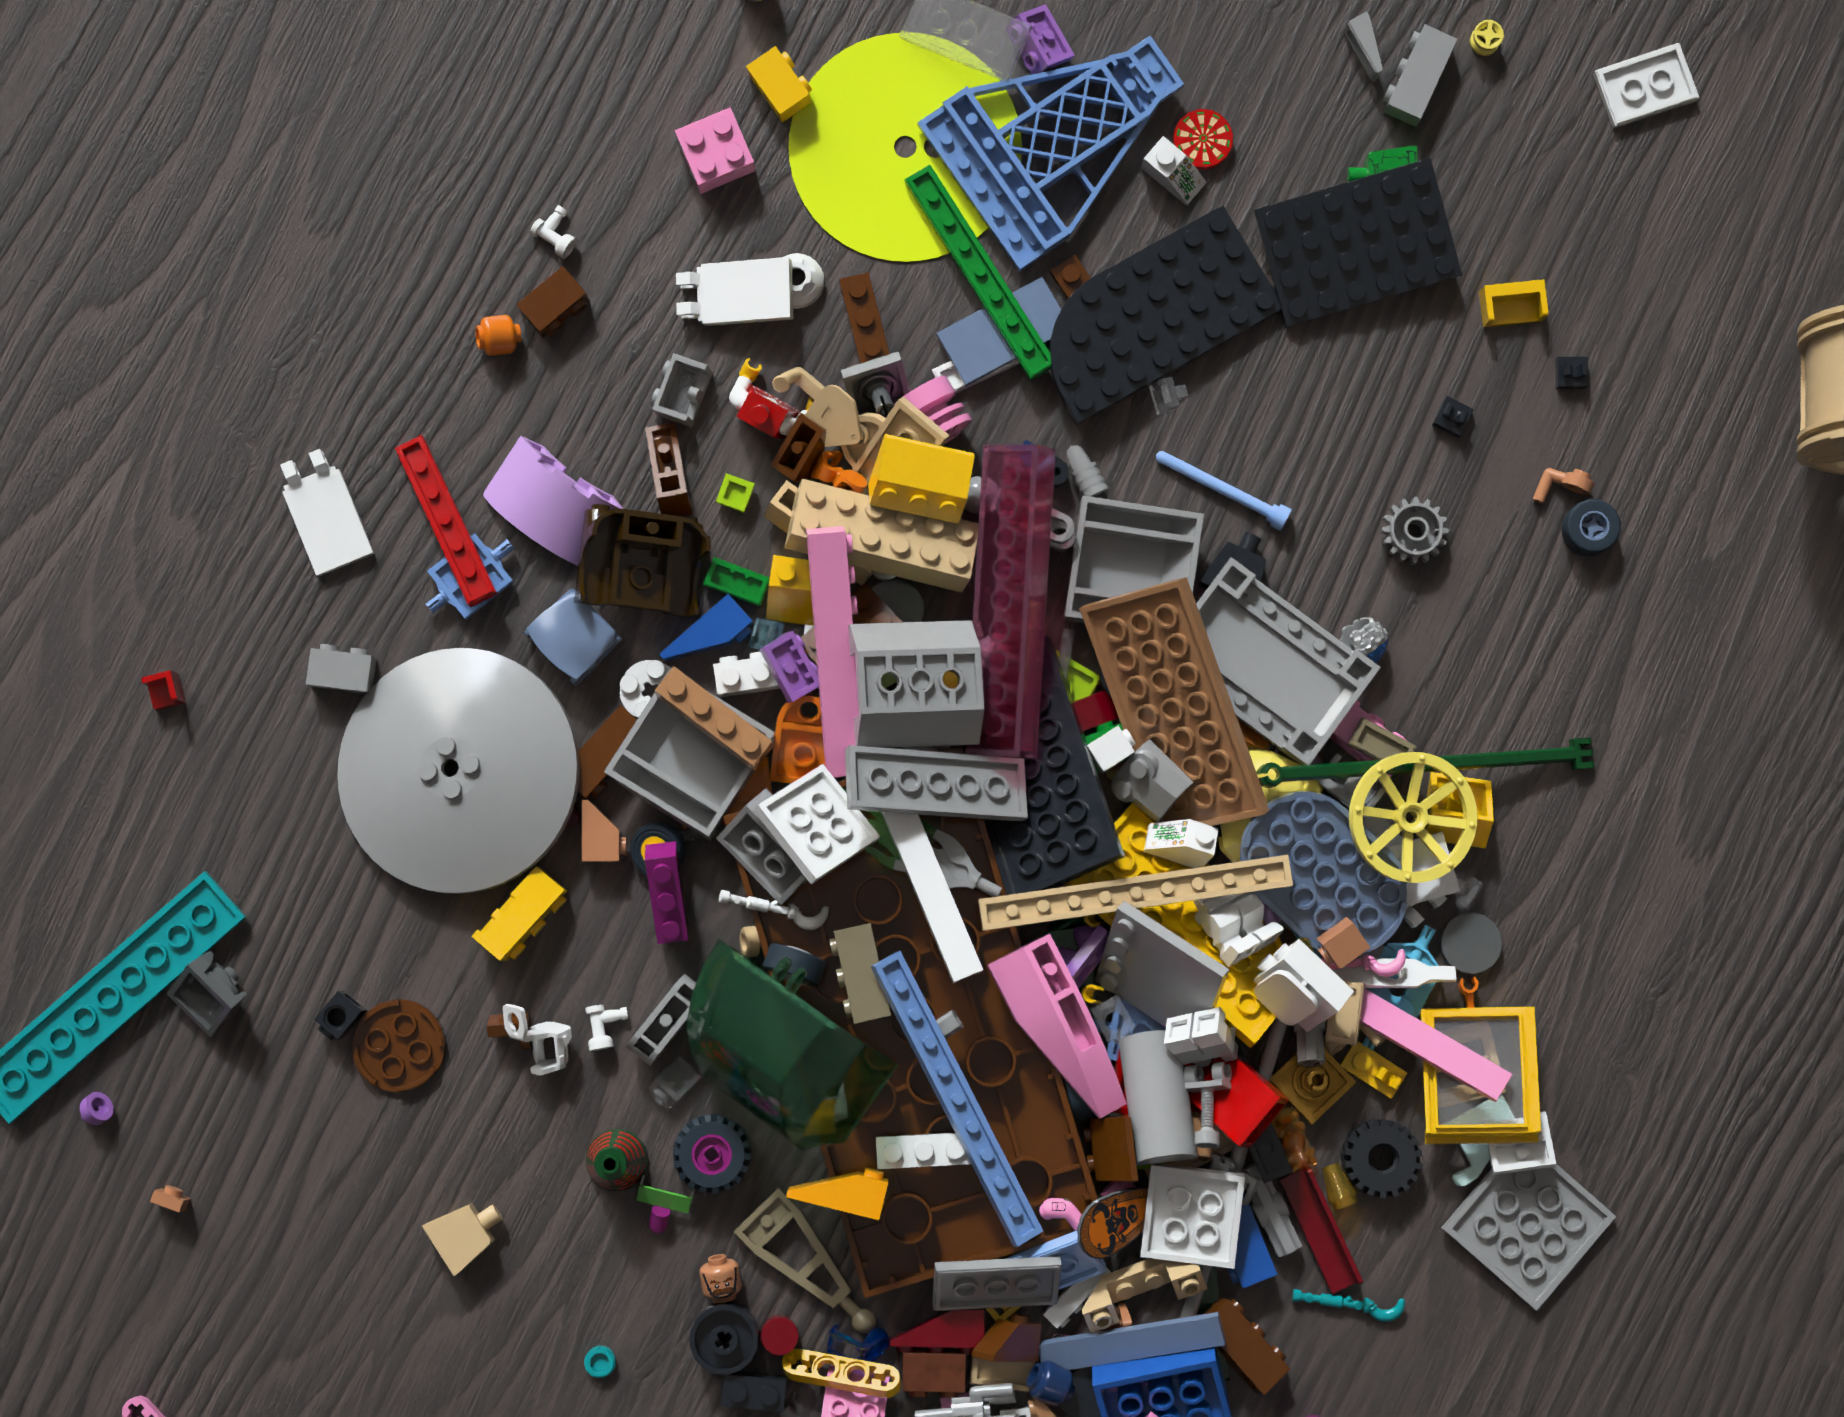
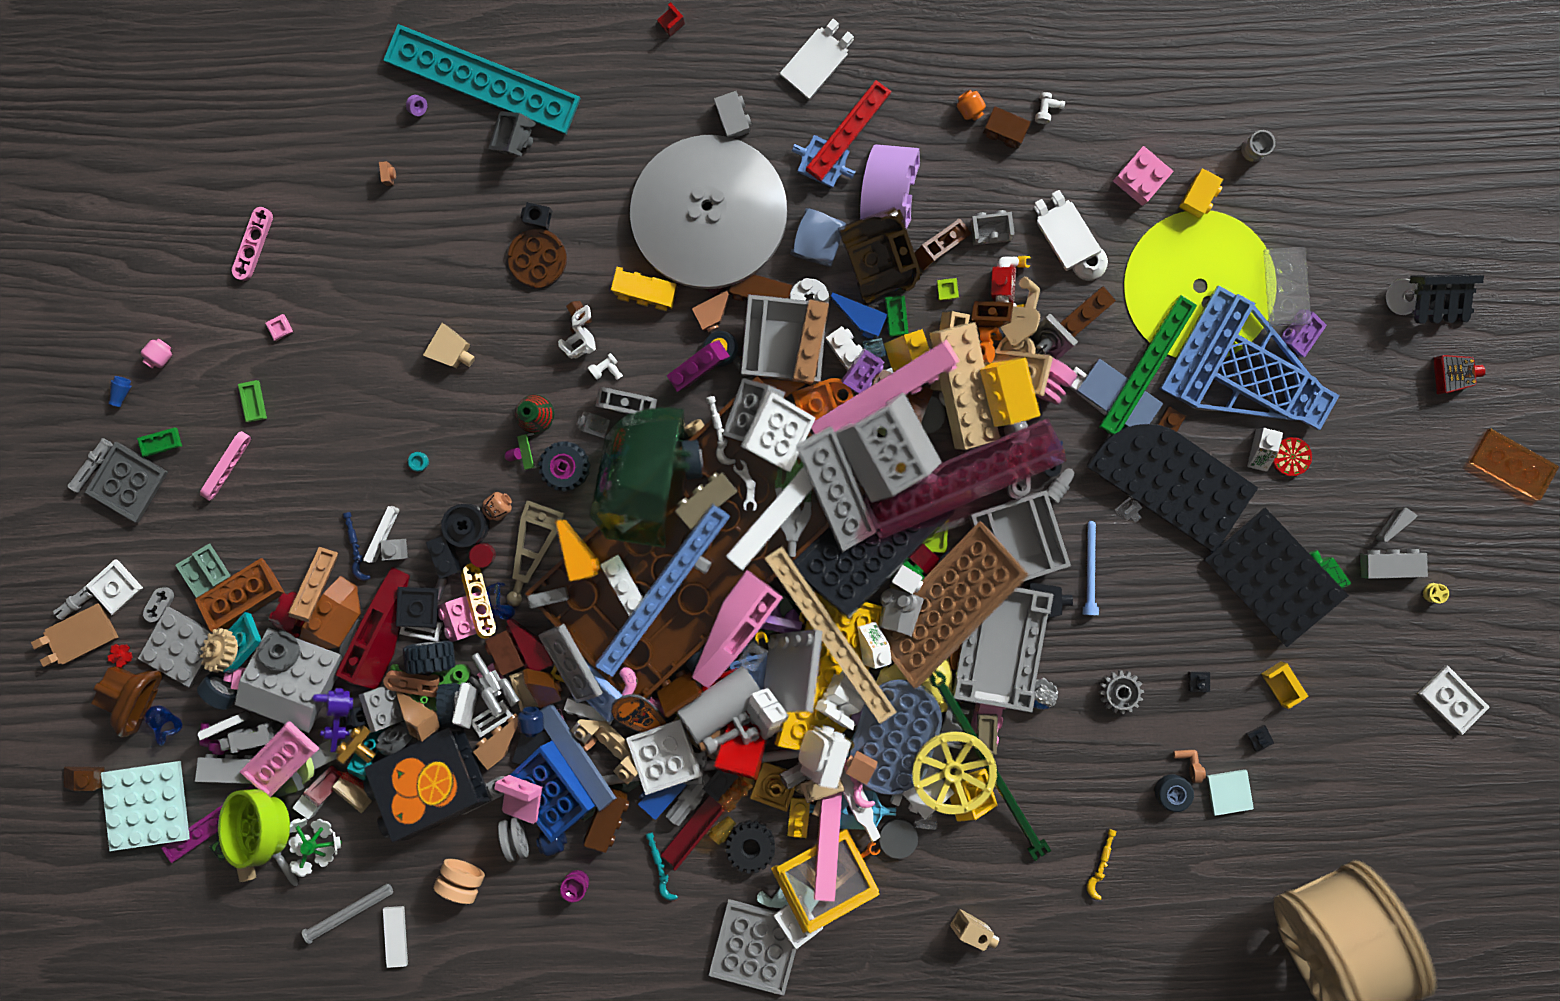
camera: 65 degrees right, 5 degrees up
(869, 900) = (750, 484): none -> white piece
(886, 1266) = (548, 597): none -> light grey piece
(1627, 450) = (1230, 792): none -> light aqua tile
(1651, 901) = (973, 931): none -> tan torso
(1658, 688) = (1099, 875): none -> yellow piece

